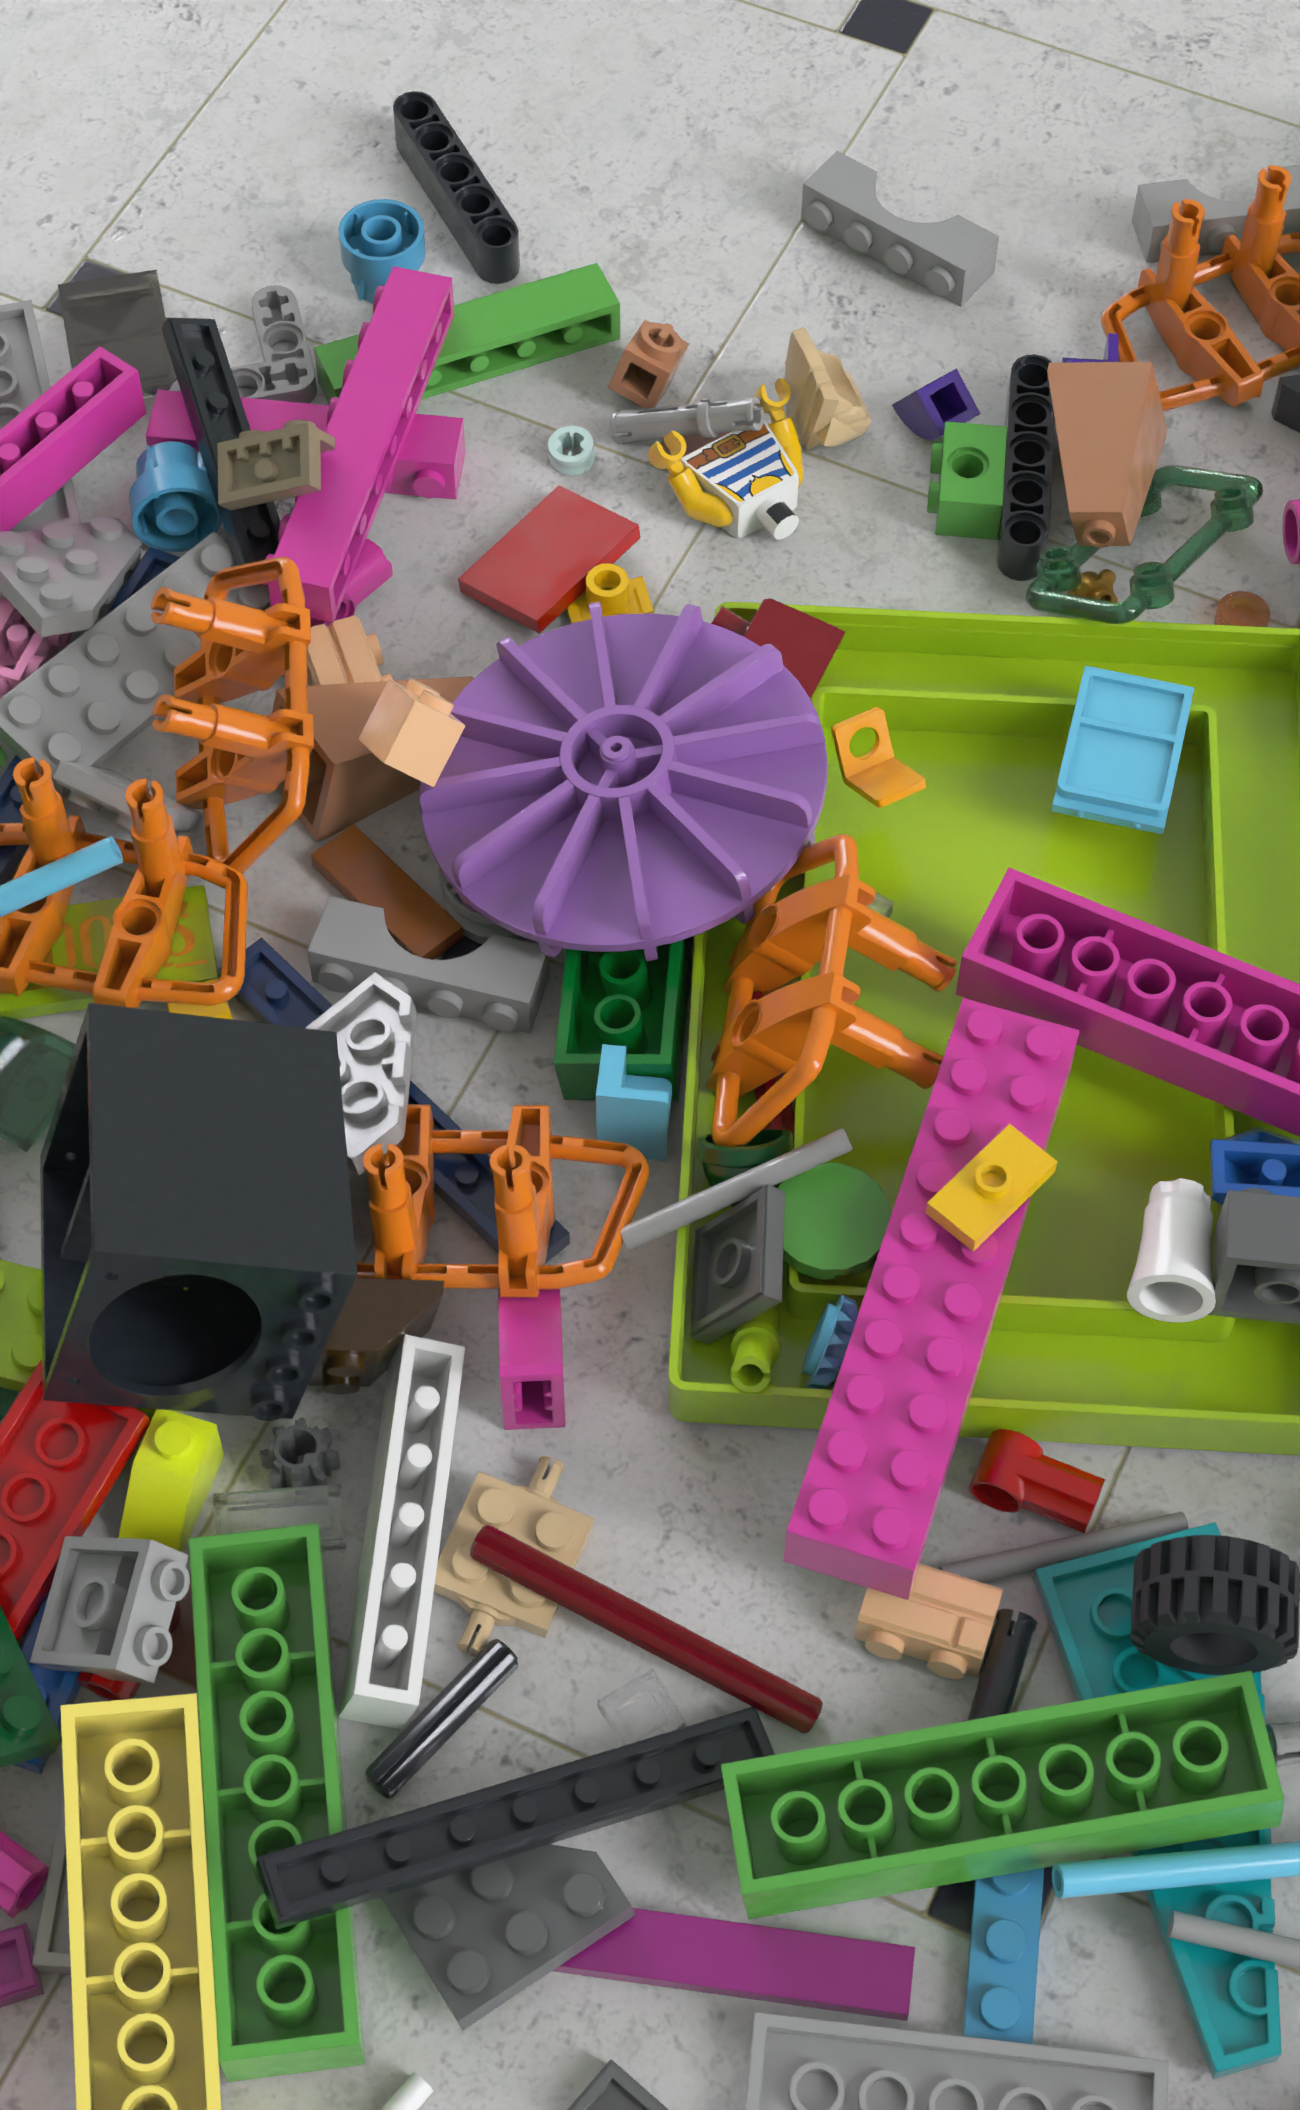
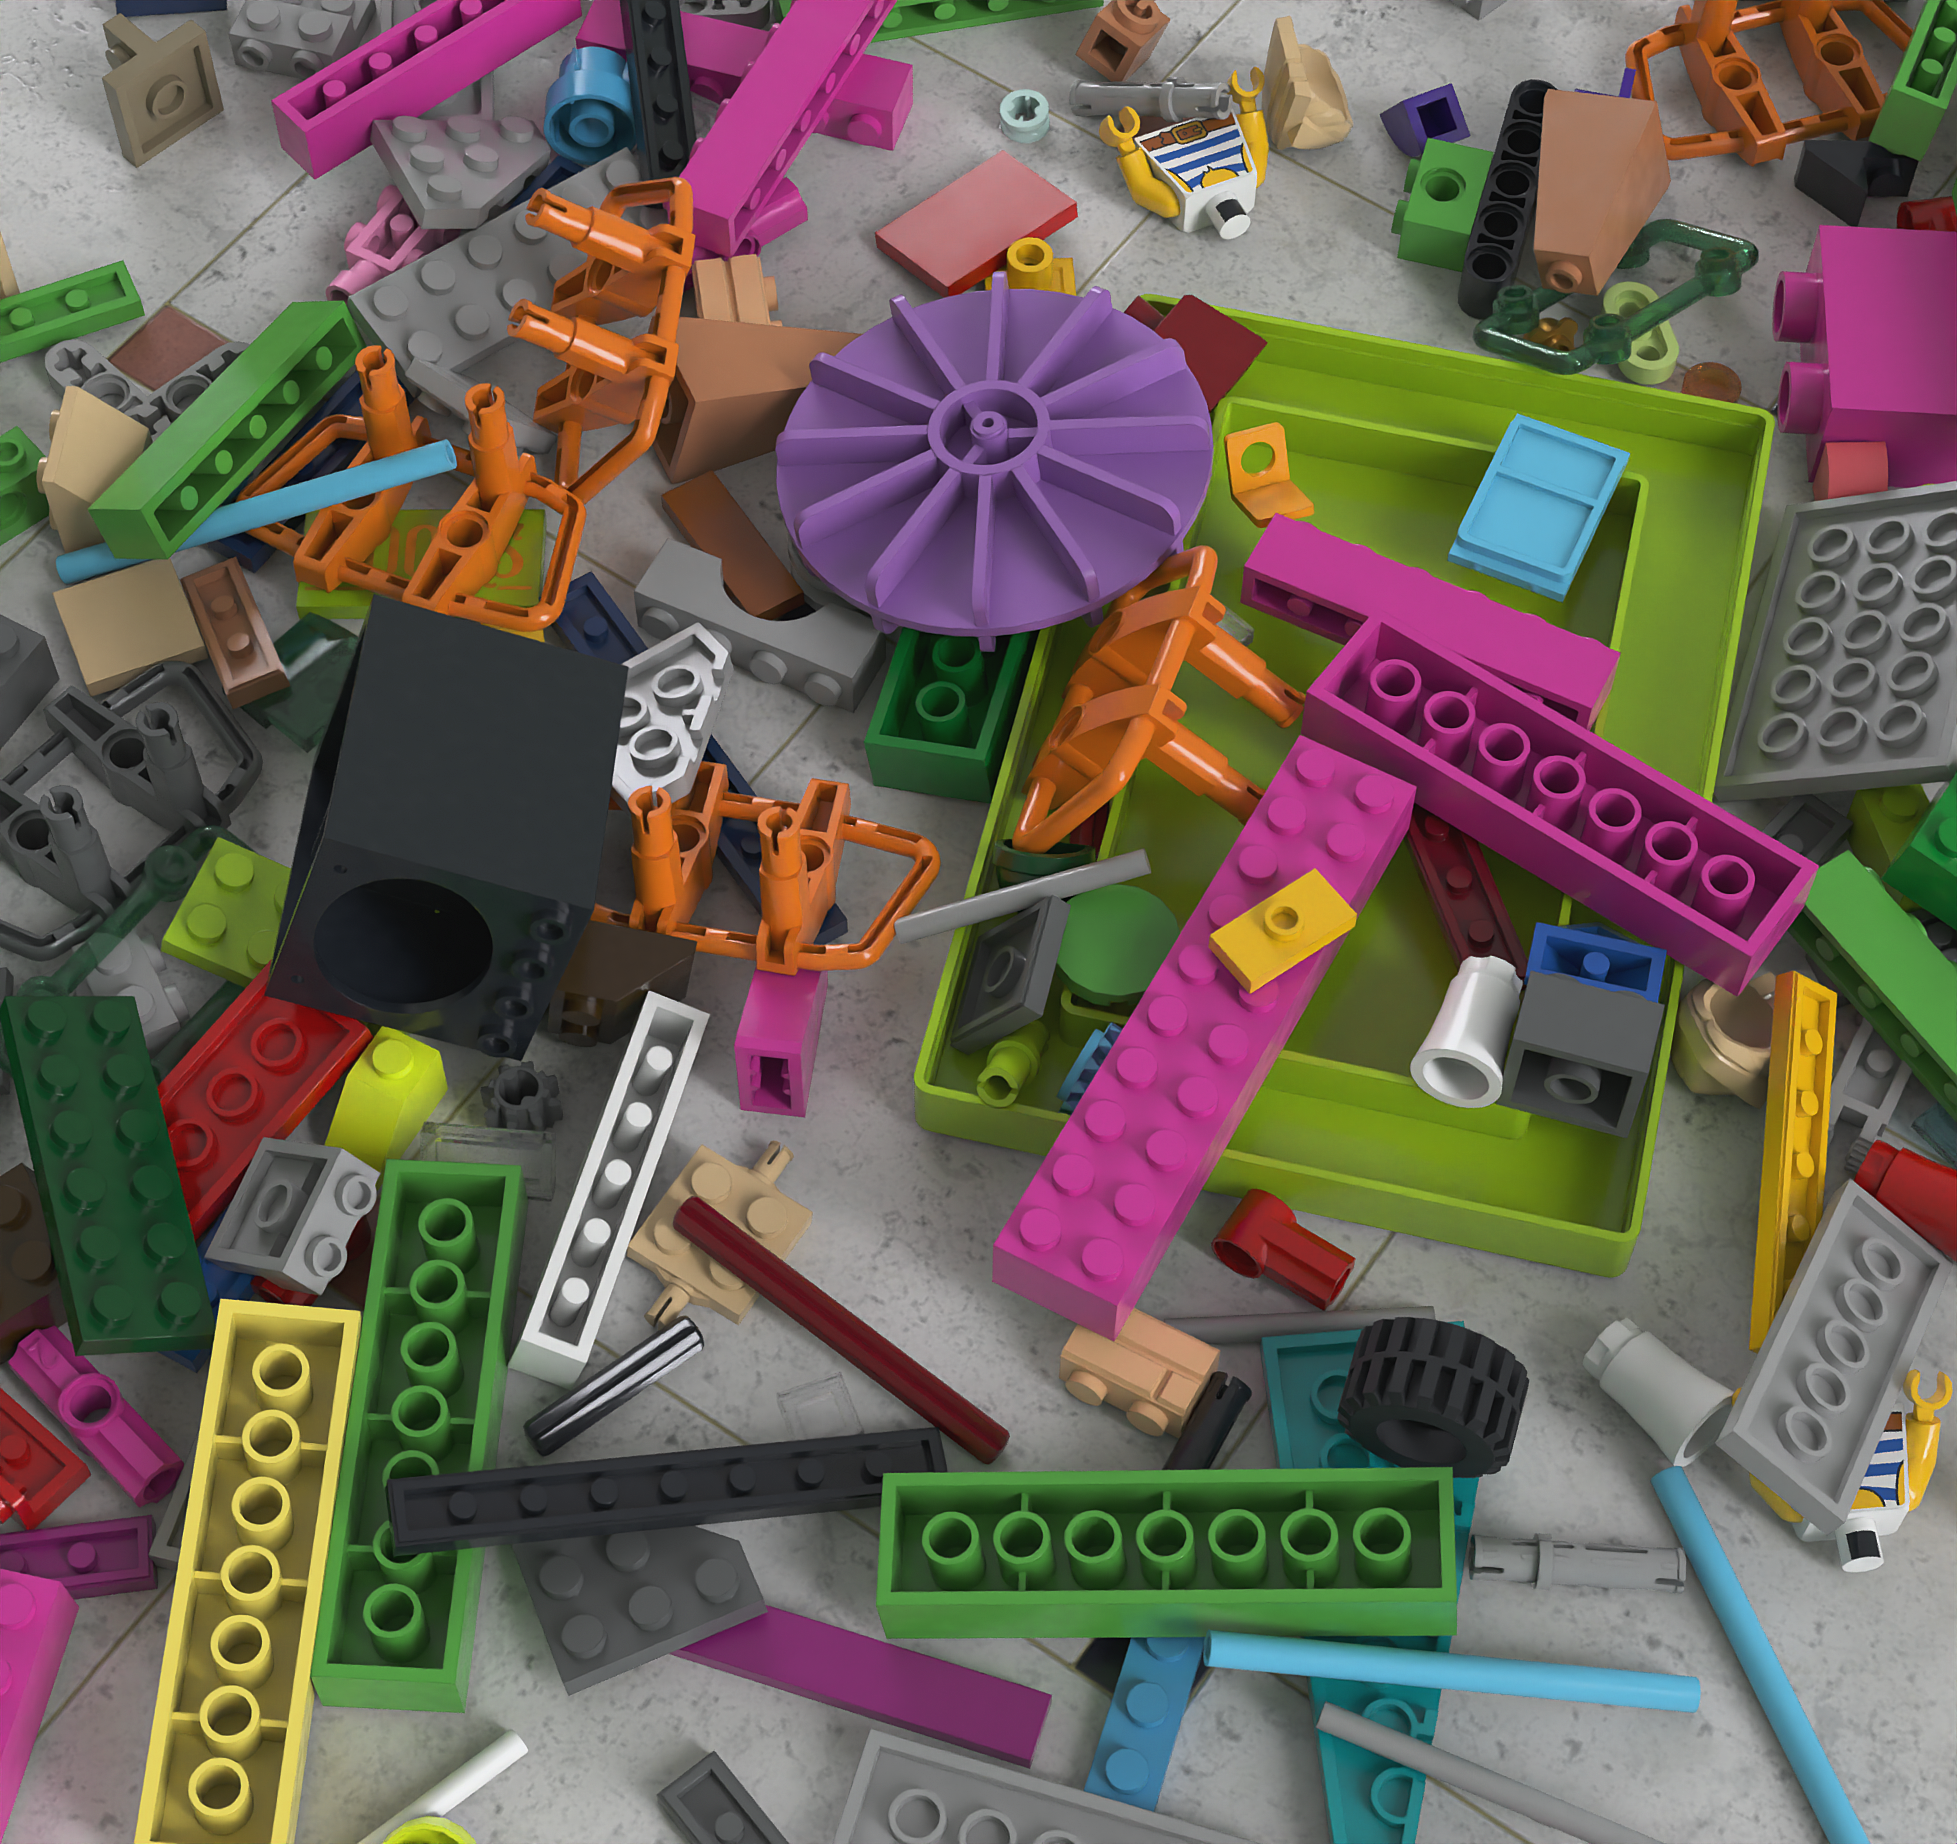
camera: 10 degrees right, 0 degrees up
(271, 464) = (693, 83): dark tan bracket -> none
(412, 730) = (780, 376): light nougat brick -> none
(632, 1106) = (936, 799): medium azure panel -> none
(969, 852) = (1339, 584): none -> dark pink brick
(1132, 1122) = (1462, 892): none -> dark red tile
(1190, 588) = (1653, 353): none -> yellowish green plate

